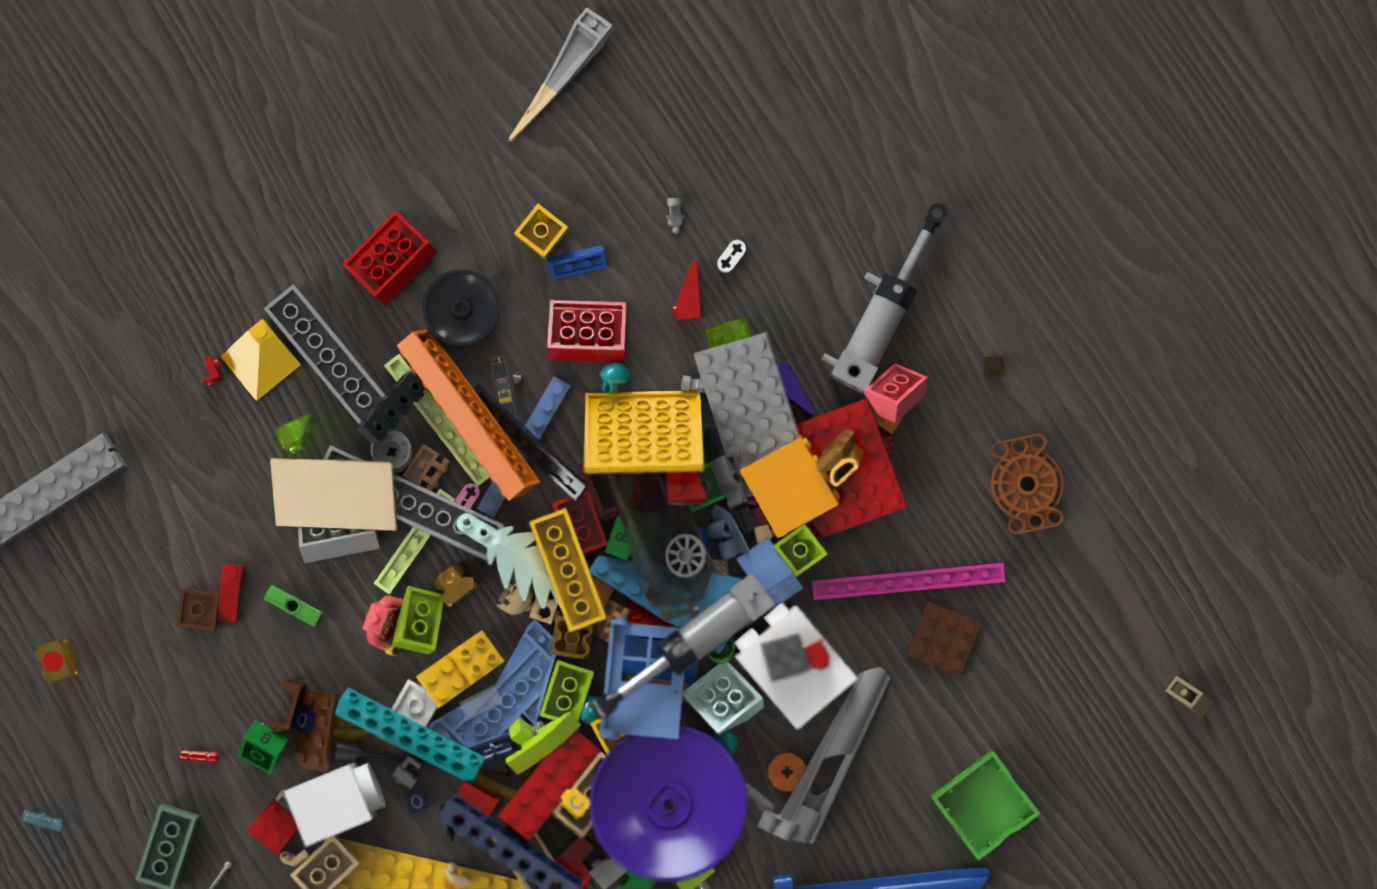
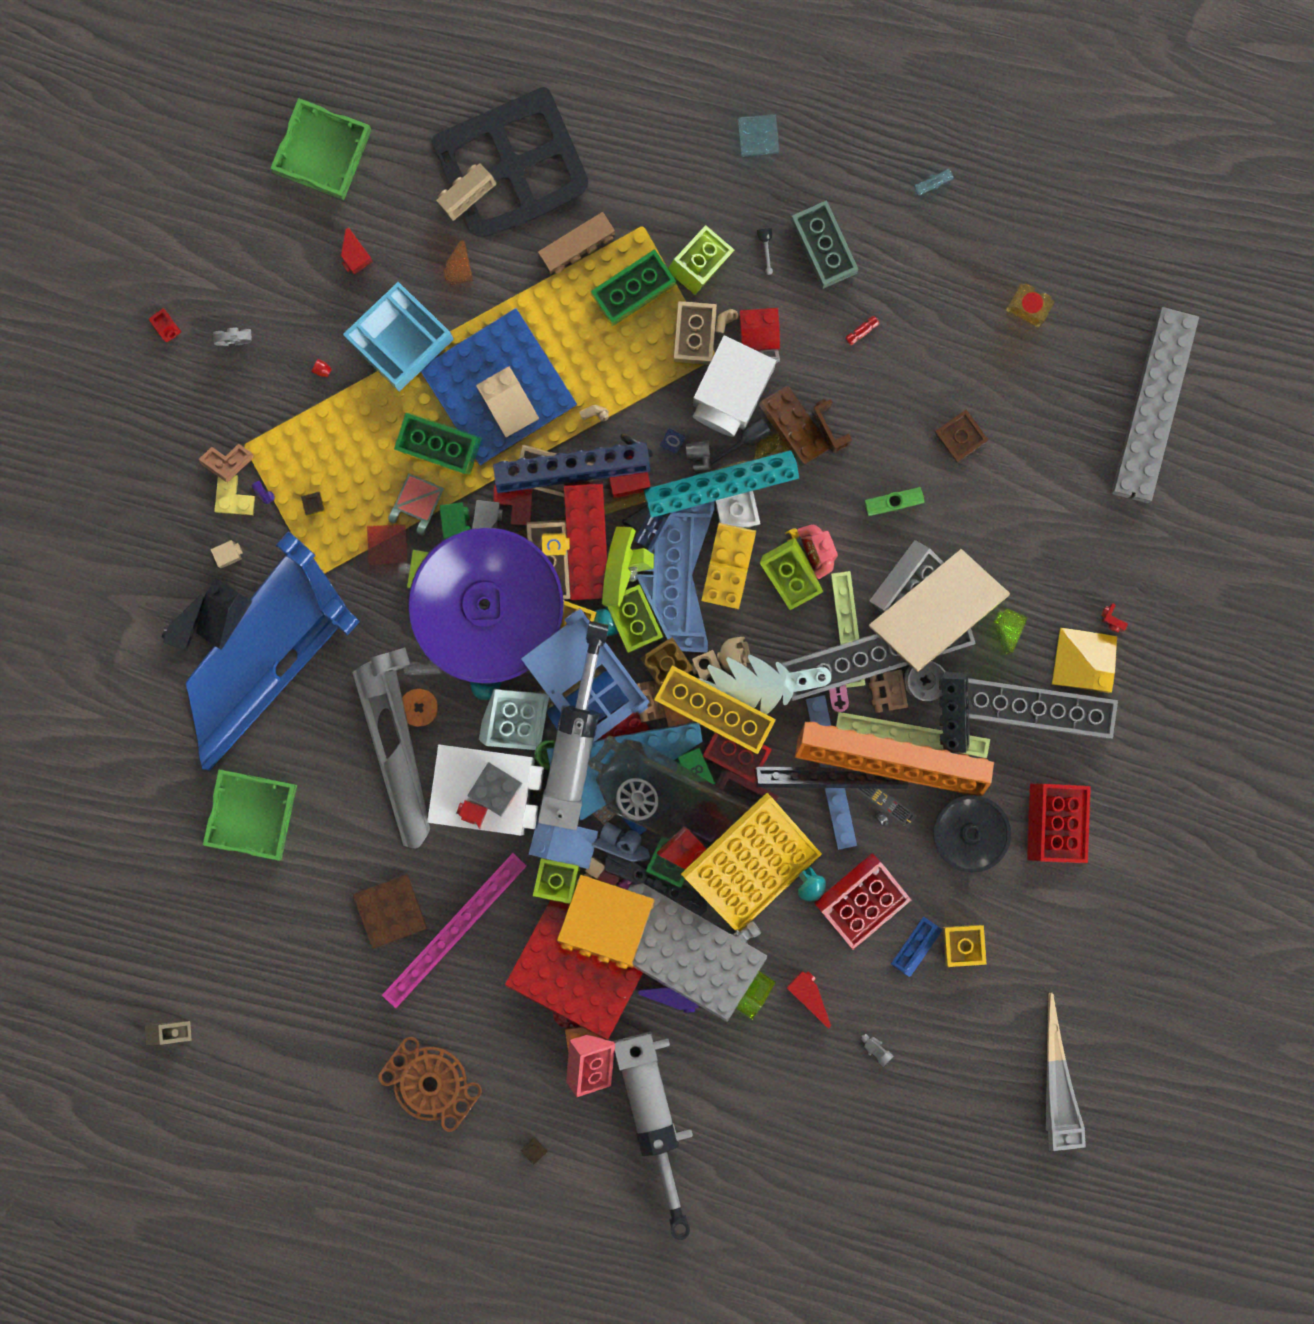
camera: 140 degrees right, 0 degrees up
(230, 592) = (949, 470): red slope -> none
(262, 747) = (821, 379): green brick -> none
(304, 720) = (809, 425): clear blue tile -> none
(455, 584) = (789, 624): pearl gold piece -> none
(481, 702) = (691, 555): clear plate -> none
(727, 253) = (810, 1054): white beam -> none
(729, 479) = (655, 886): dark grey piece -> none
(840, 457) = (587, 976): pearl gold piece -> none

